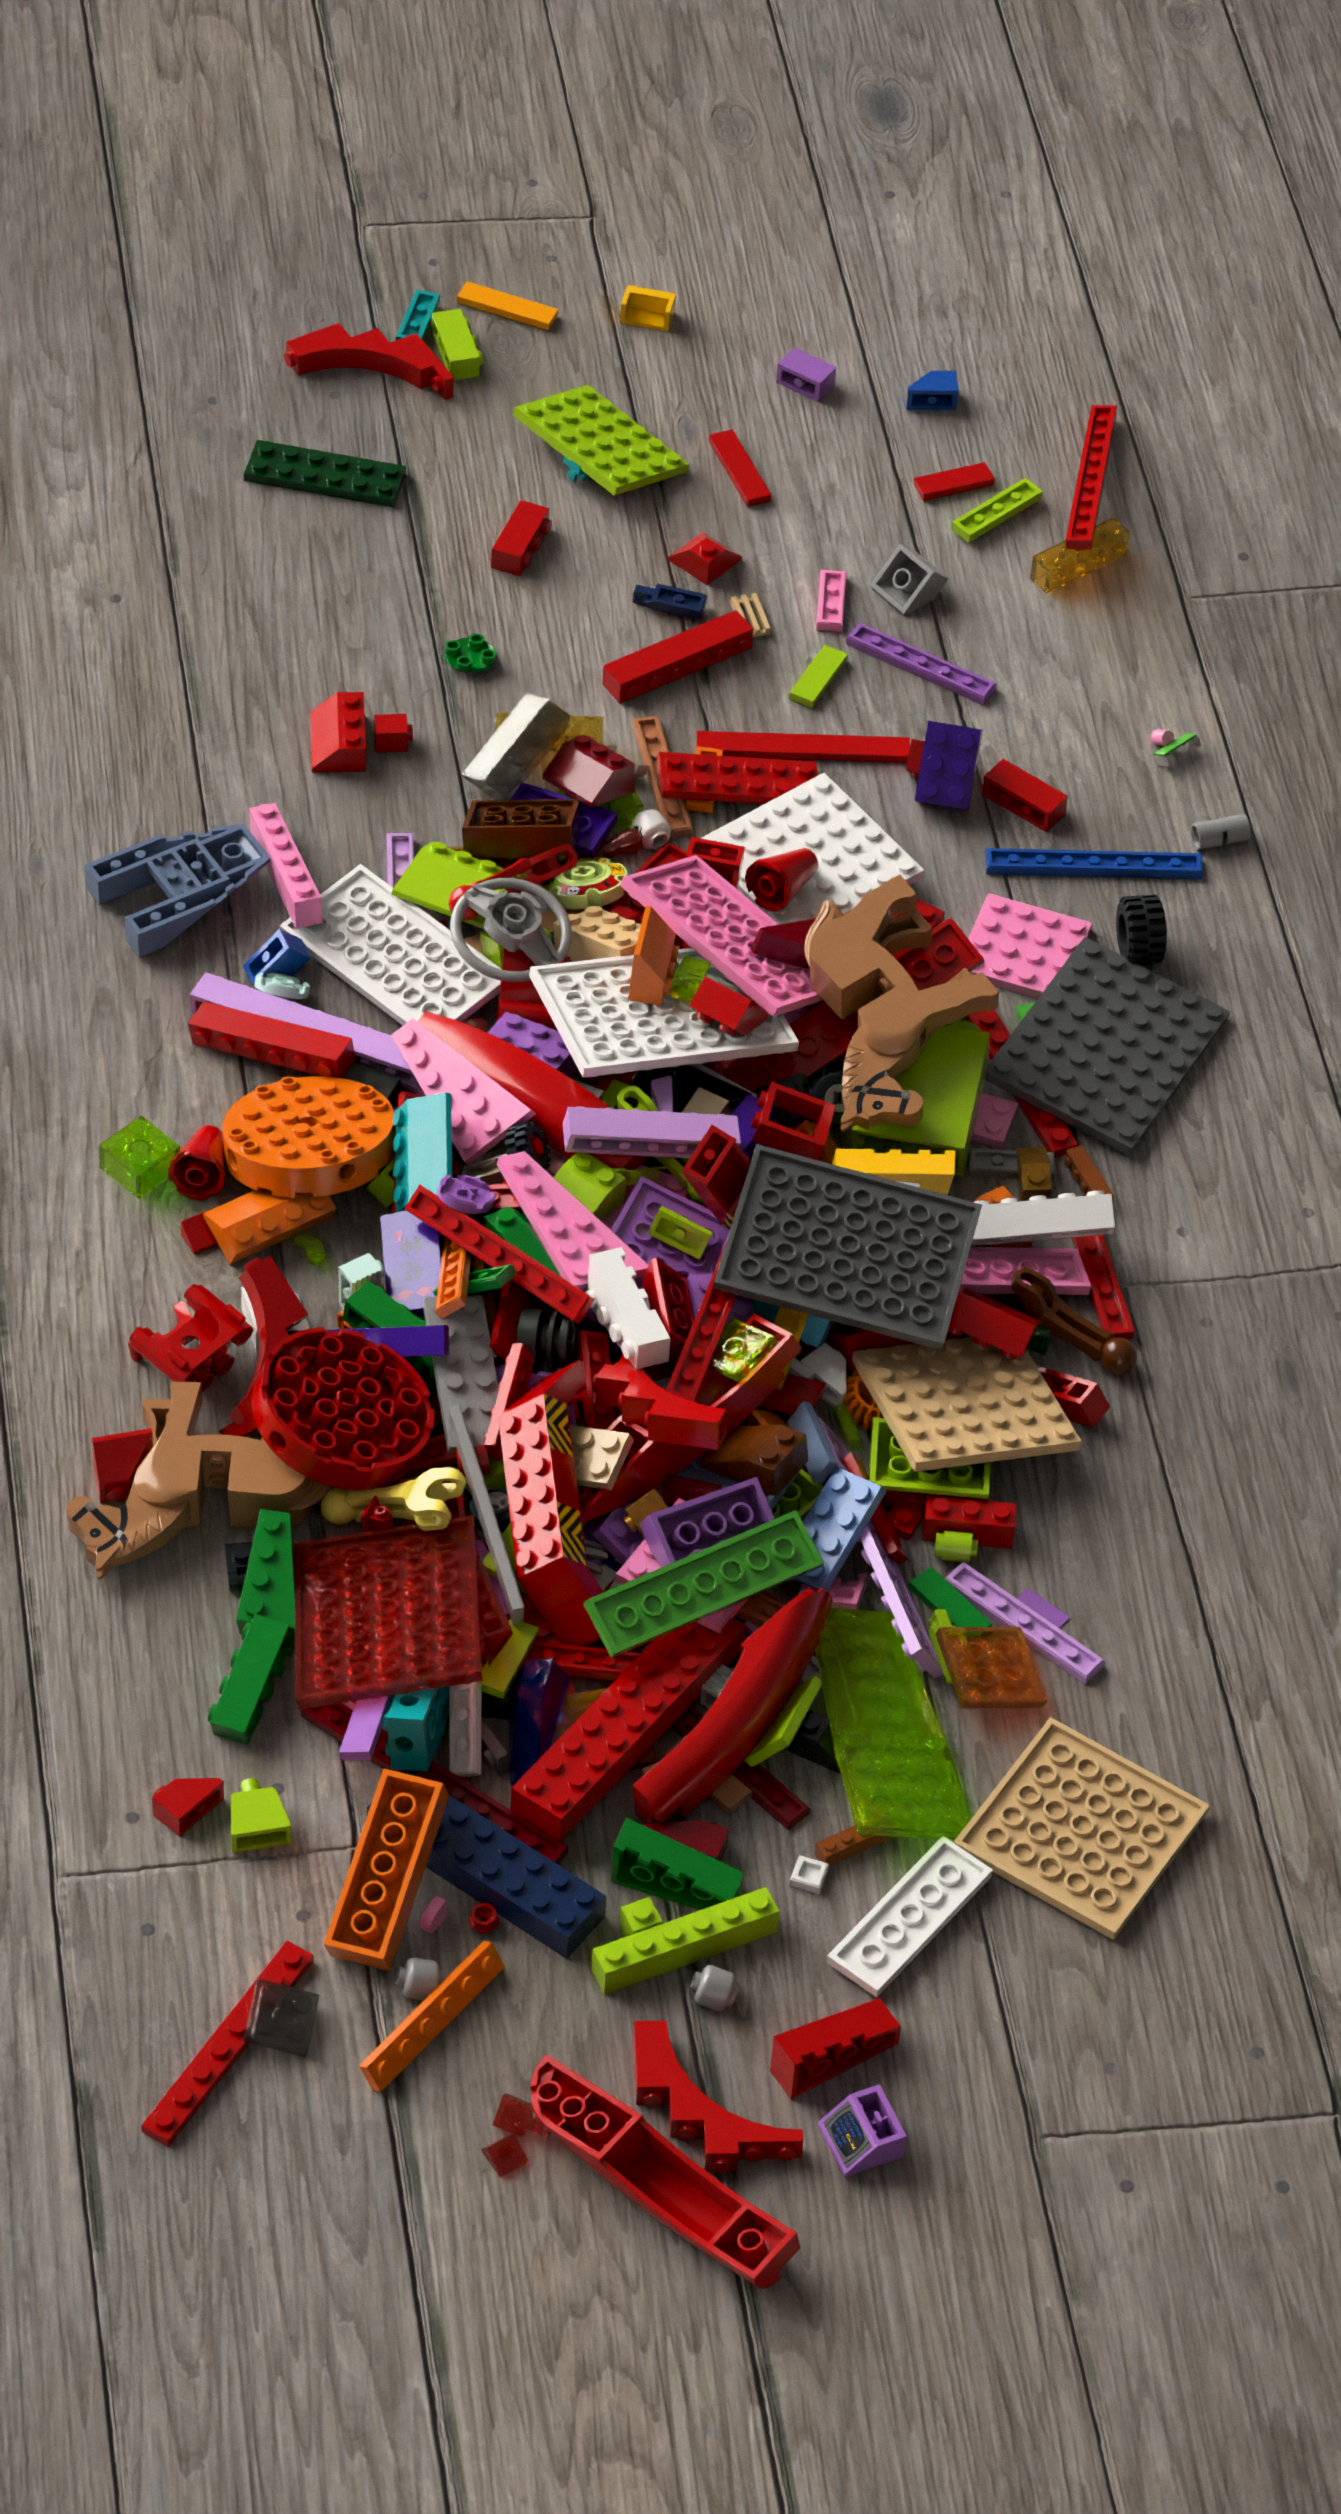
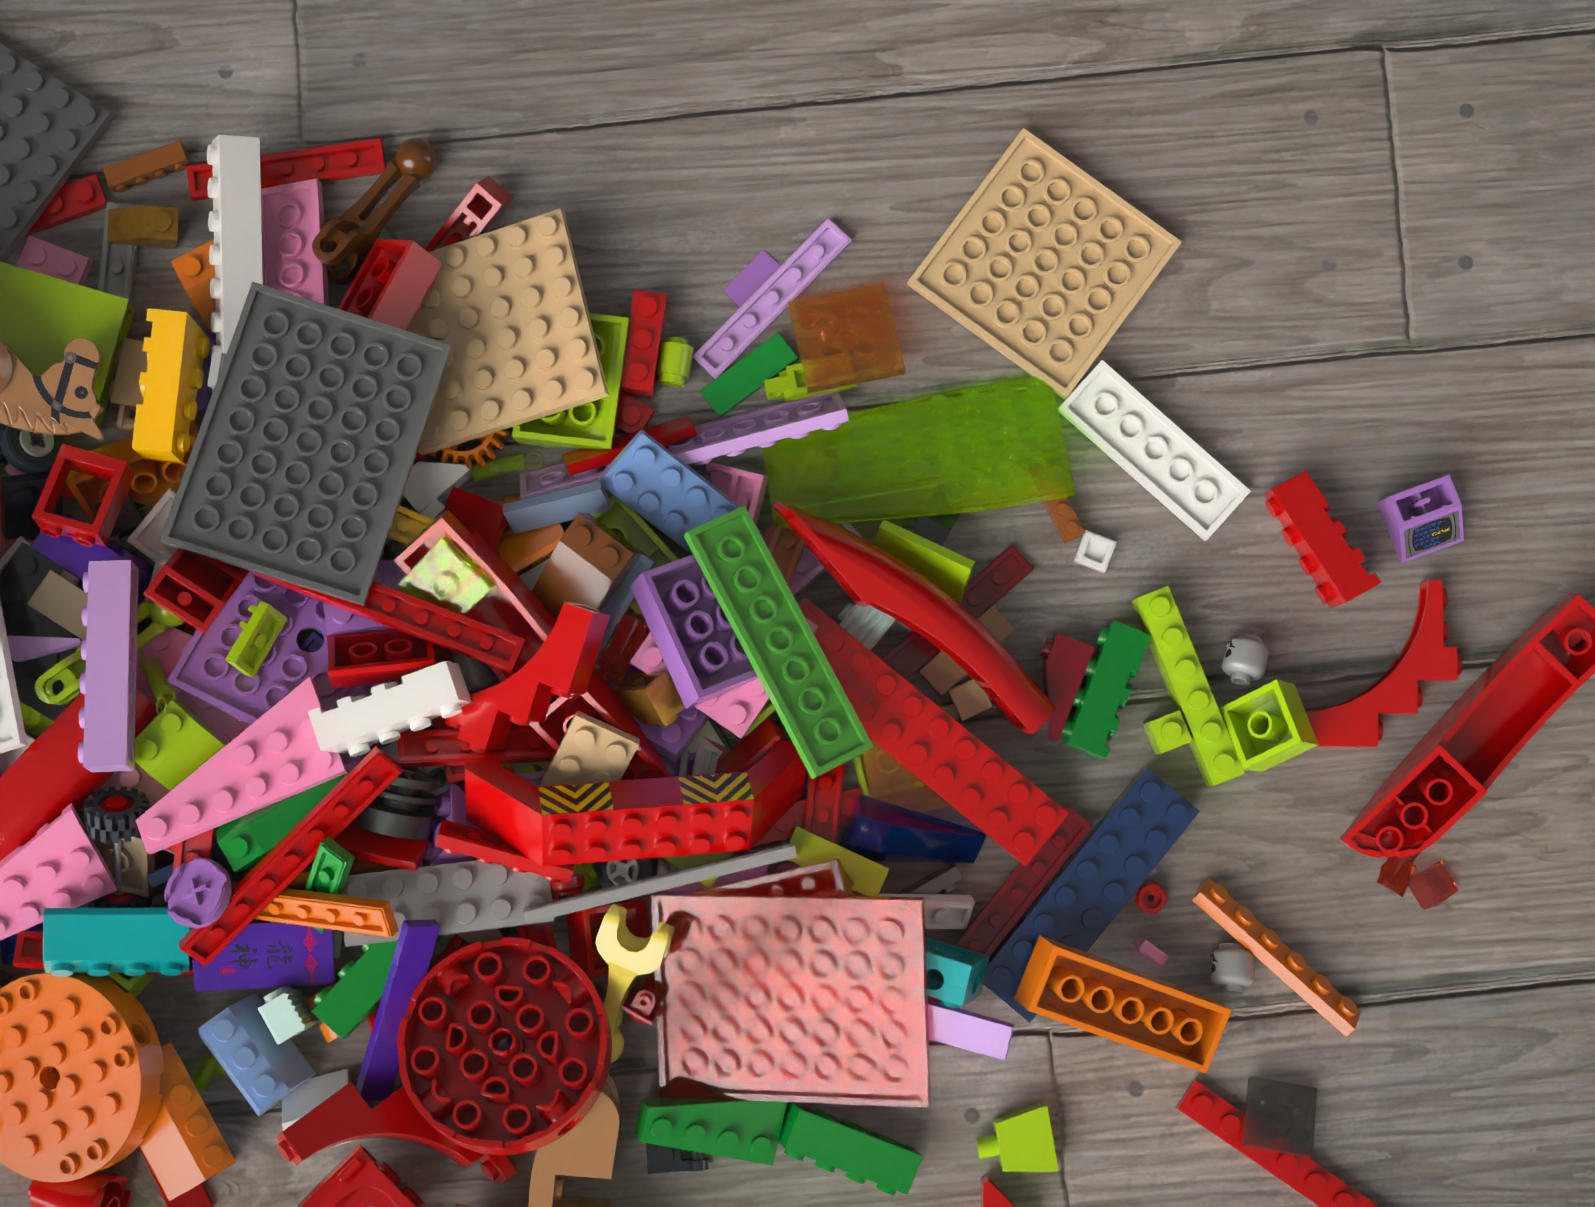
camera: 85 degrees left, 35 degrees up
(314, 1265) = (252, 1057): none -> light blue slope
(651, 1990) = (1268, 726): none -> lime brick

